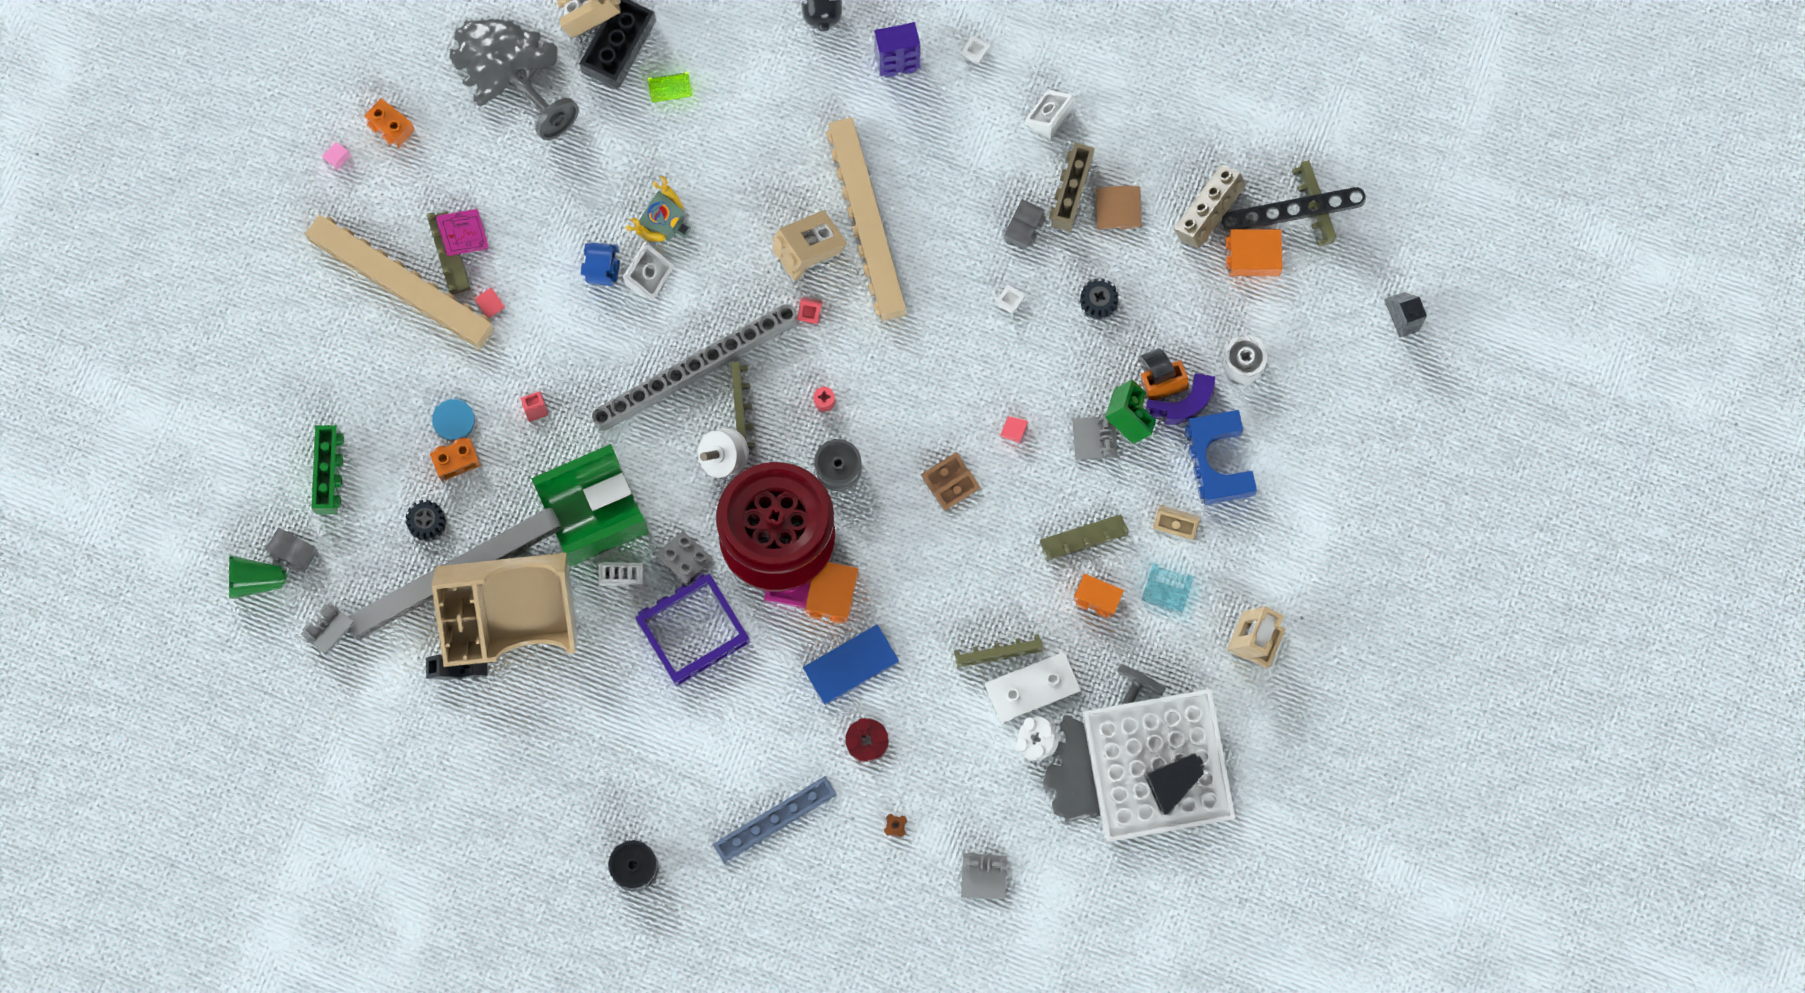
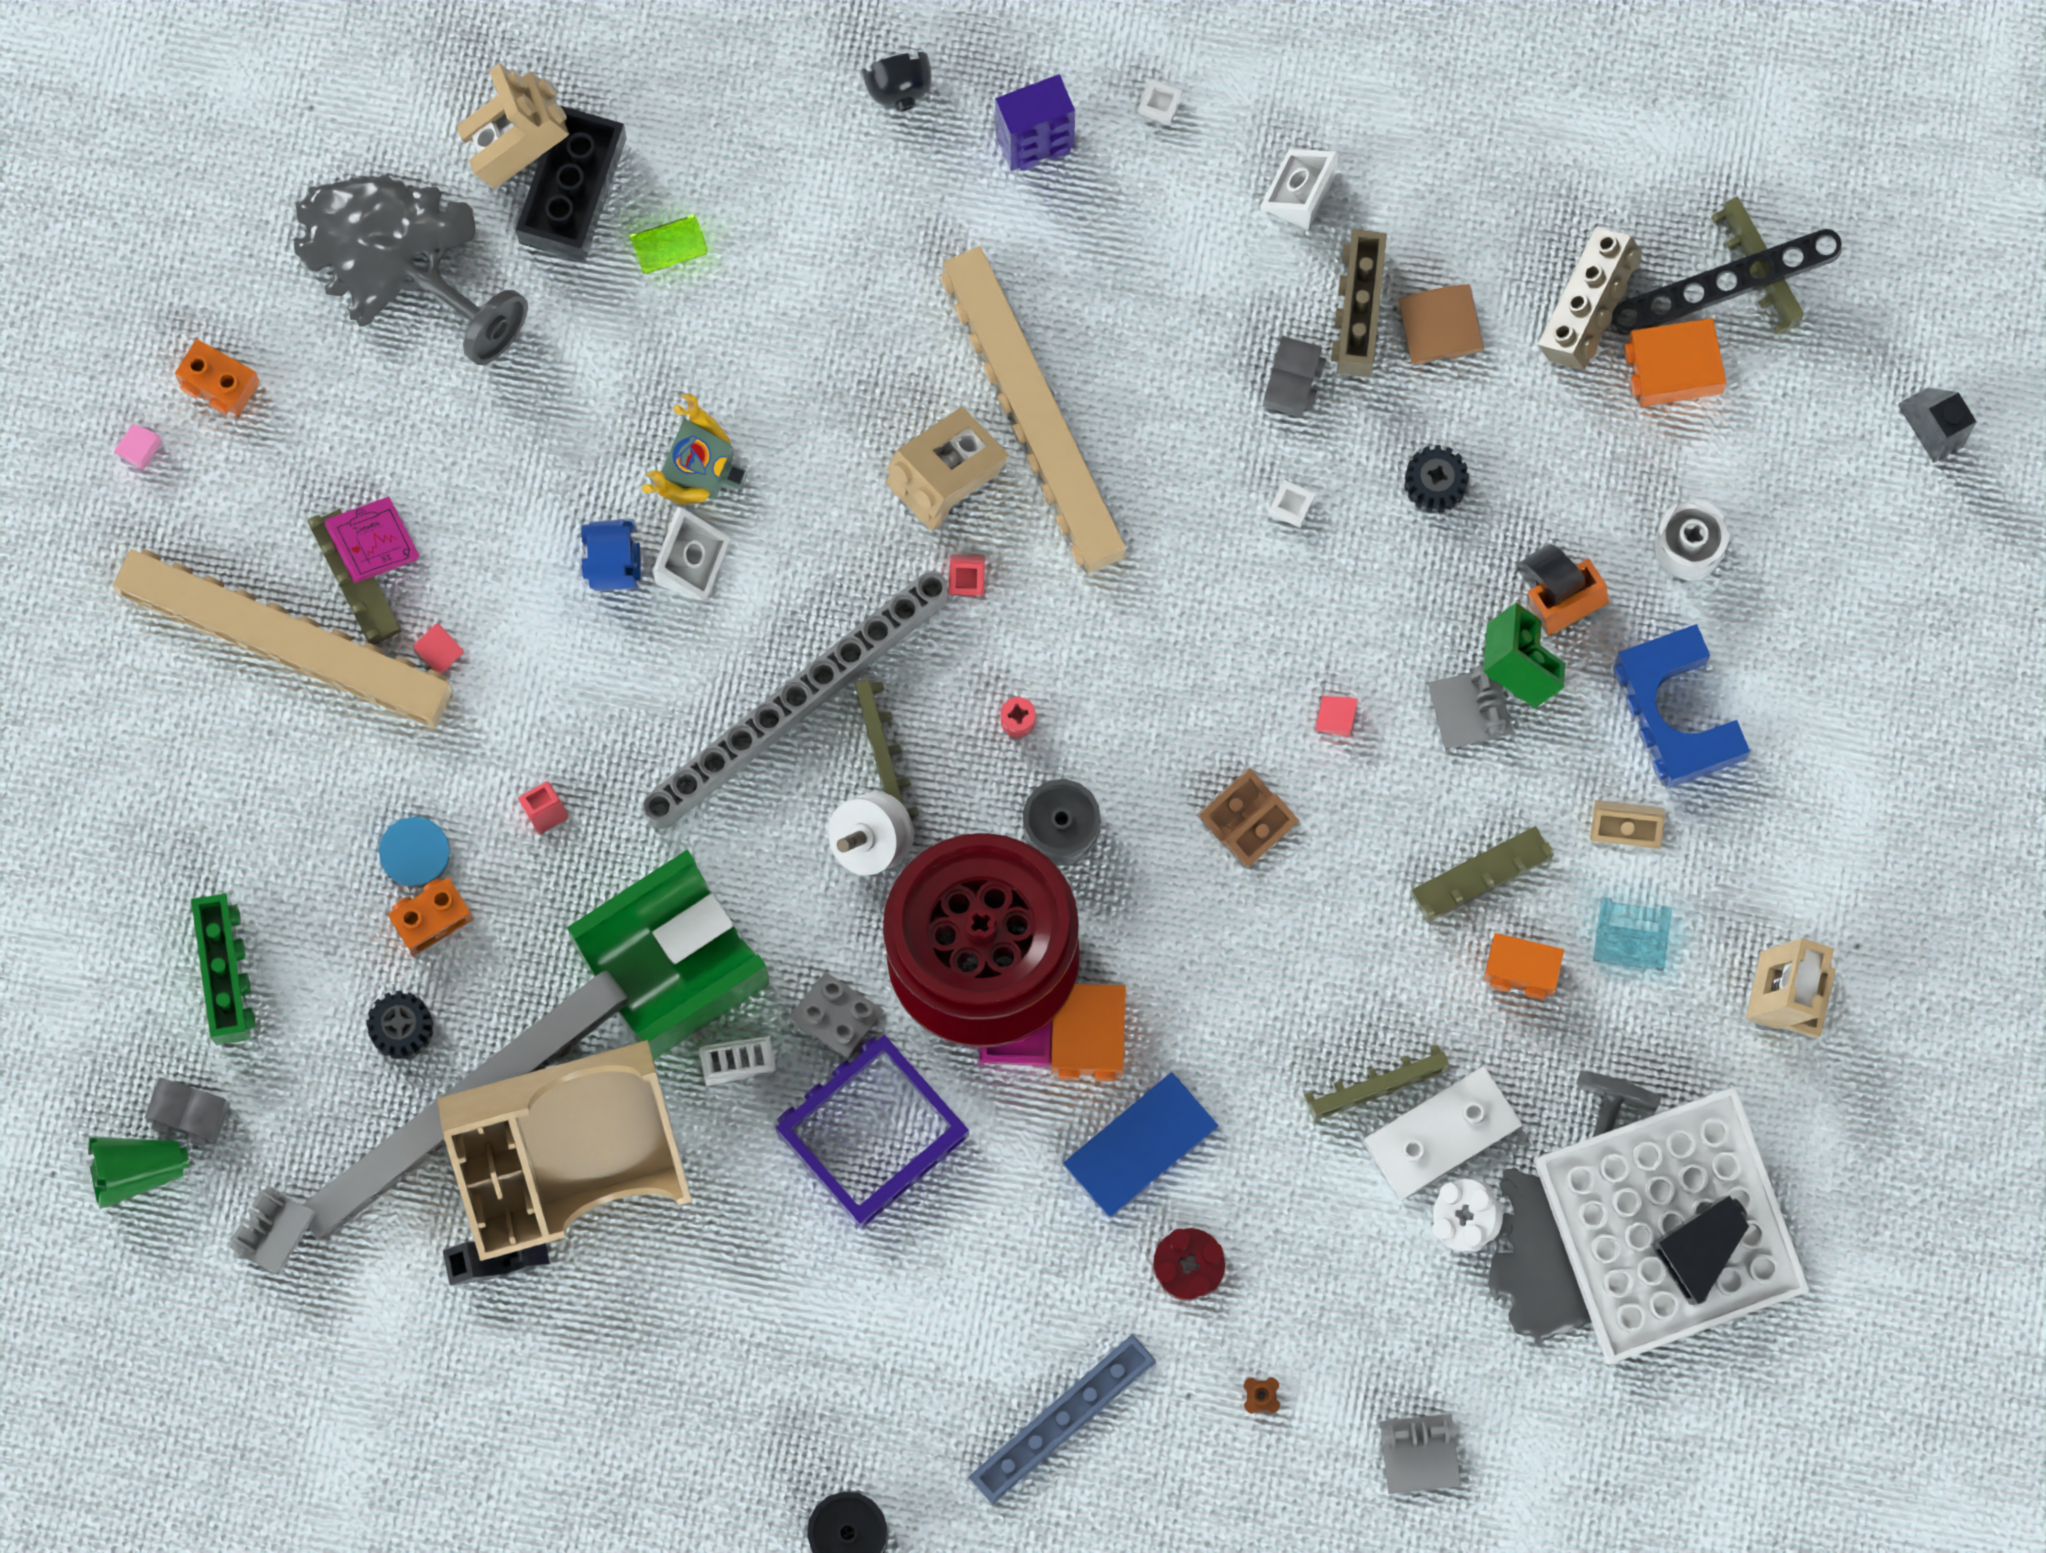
camera: 10 degrees left, 0 degrees up
(1187, 408) = (1629, 607): dark purple arch -> none

